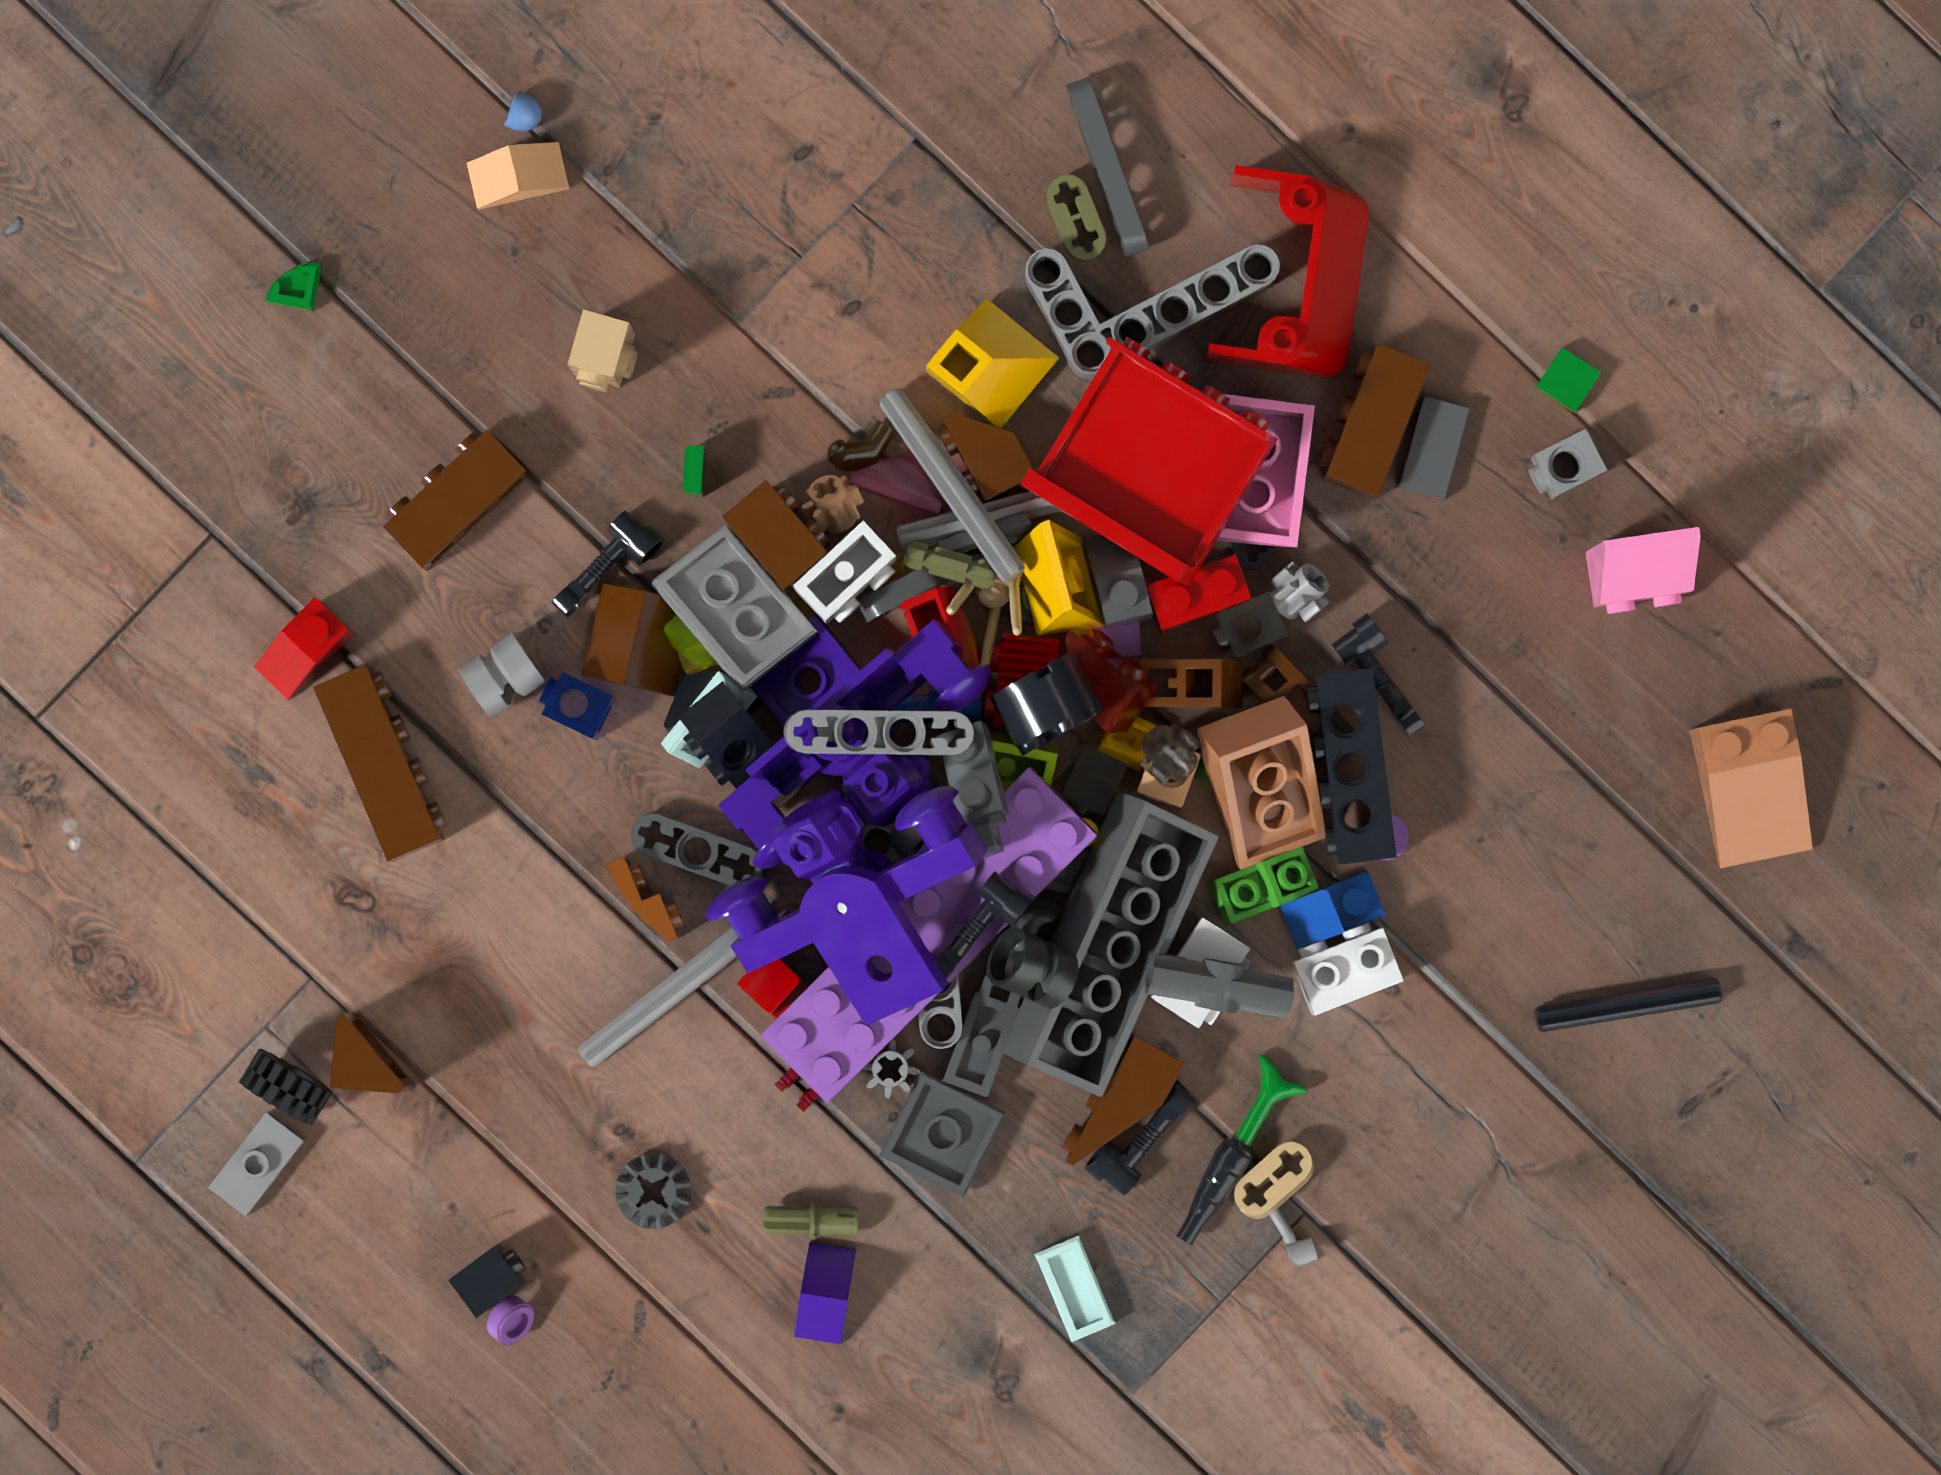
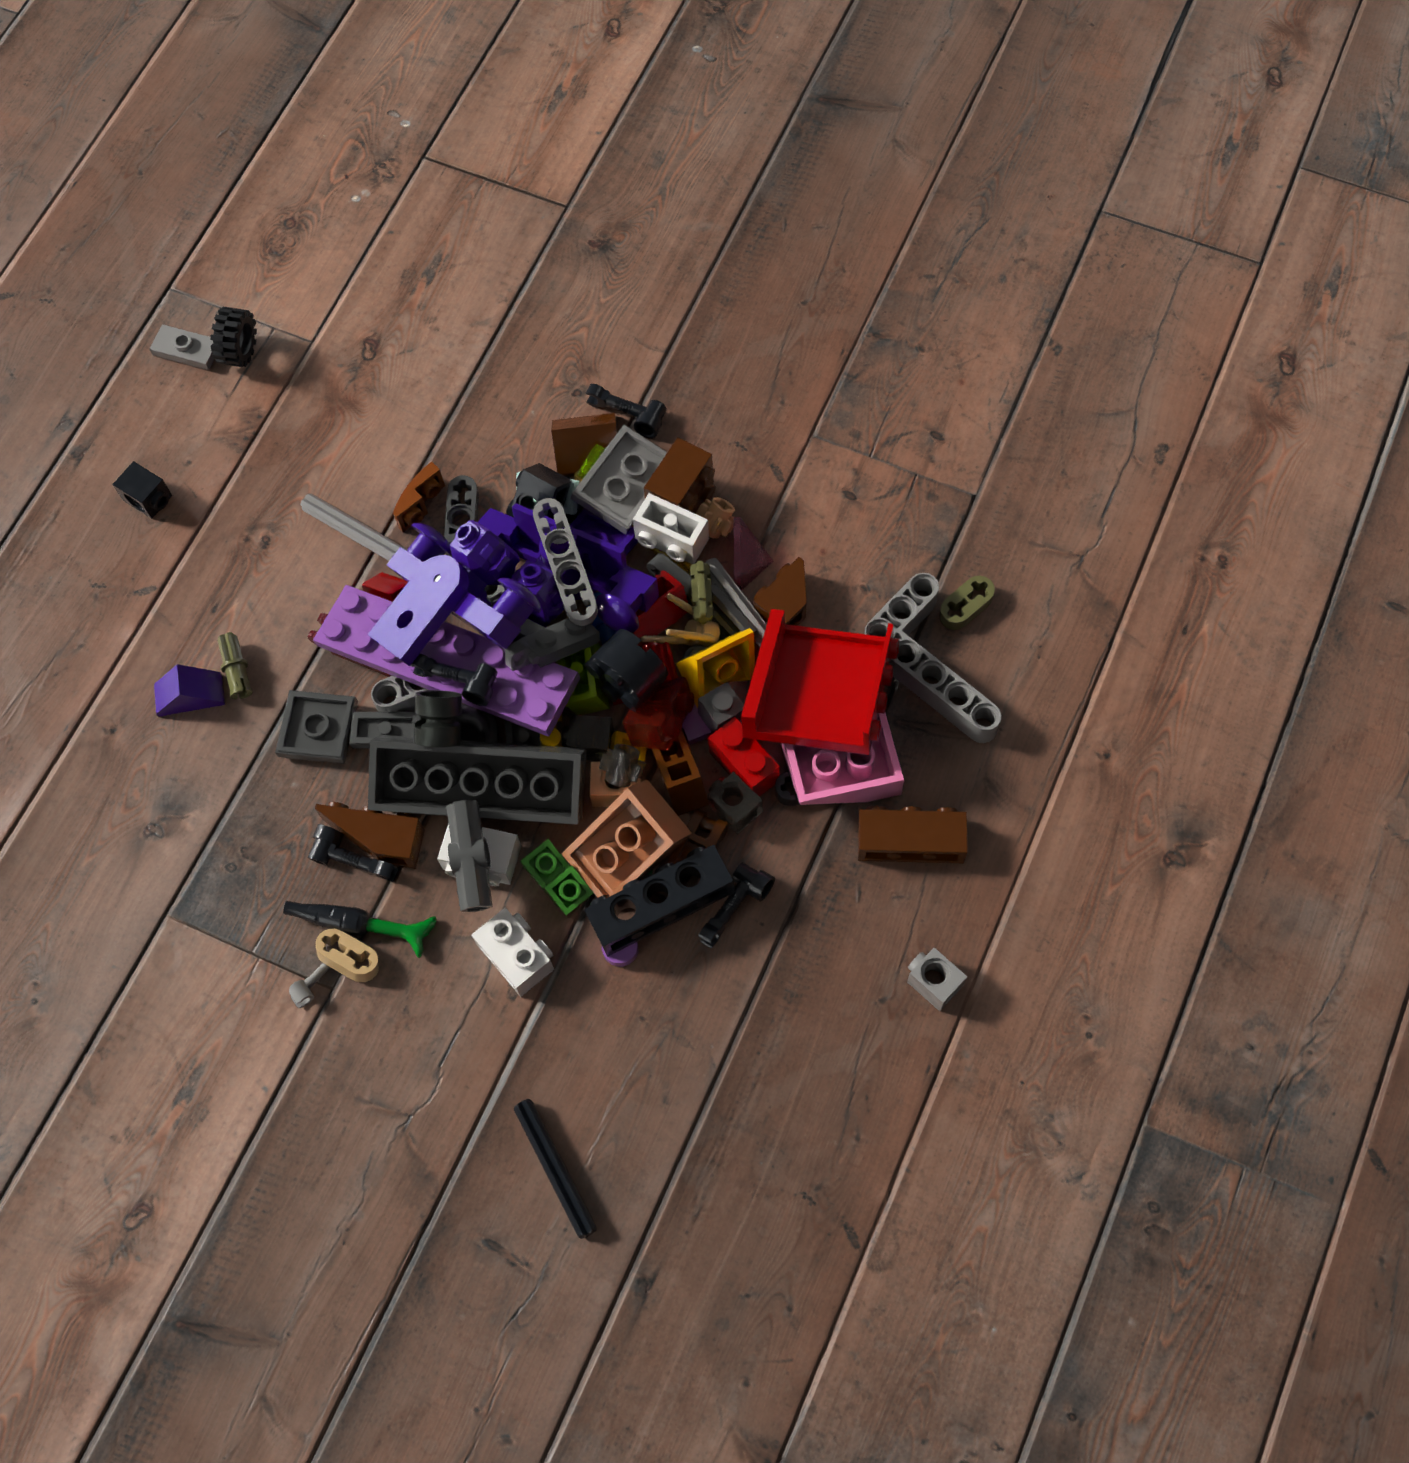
camera: 80 degrees right, 20 degrees down
(297, 287) = (733, 199): green tile -> none
(303, 647) = (517, 267): red slope -> none
(362, 1061) = (264, 369): reddish brown slope -> none
(379, 762) = (455, 327): reddish brown brick -> none
(454, 499) = (635, 314): reddish brown brick -> none
(501, 675) = (534, 371): light grey wheel -> none
(510, 1320) = (119, 511): medium lavender tile -> none
(517, 173) = (853, 285): light nougat slope -> none
(523, 113) = (890, 273): medium blue hinge -> none
(591, 720) = (530, 431): clear blue brick -> none
(602, 351) = (759, 352): tan brick -> none
(676, 1191) = (231, 580): dark grey gear -> none
(694, 471) = (706, 434): green tile -> none
(861, 454) = (756, 524): dark brown arm -> none
(889, 1082) = (351, 678): light grey gear -> none
(952, 485) = (754, 579): light grey axle -> none
(991, 363) = (847, 578): yellow slope -> none
(1074, 1288) = (233, 850): light aqua tile -> none
(1106, 167) = (1008, 607): dark grey beam -> none
(1300, 591) = (771, 825): light grey gear -> none
(1321, 338) = (995, 767): red windscreen -> none
(1332, 910) = (553, 926): blue slope -> none
(1433, 448) = (910, 885): dark grey tile -> none
(1568, 380) = (997, 961): green tile -> none
(1643, 568) = (882, 1051): bright pink slope -> none
(1753, 787) = (750, 1203): nougat slope -> none

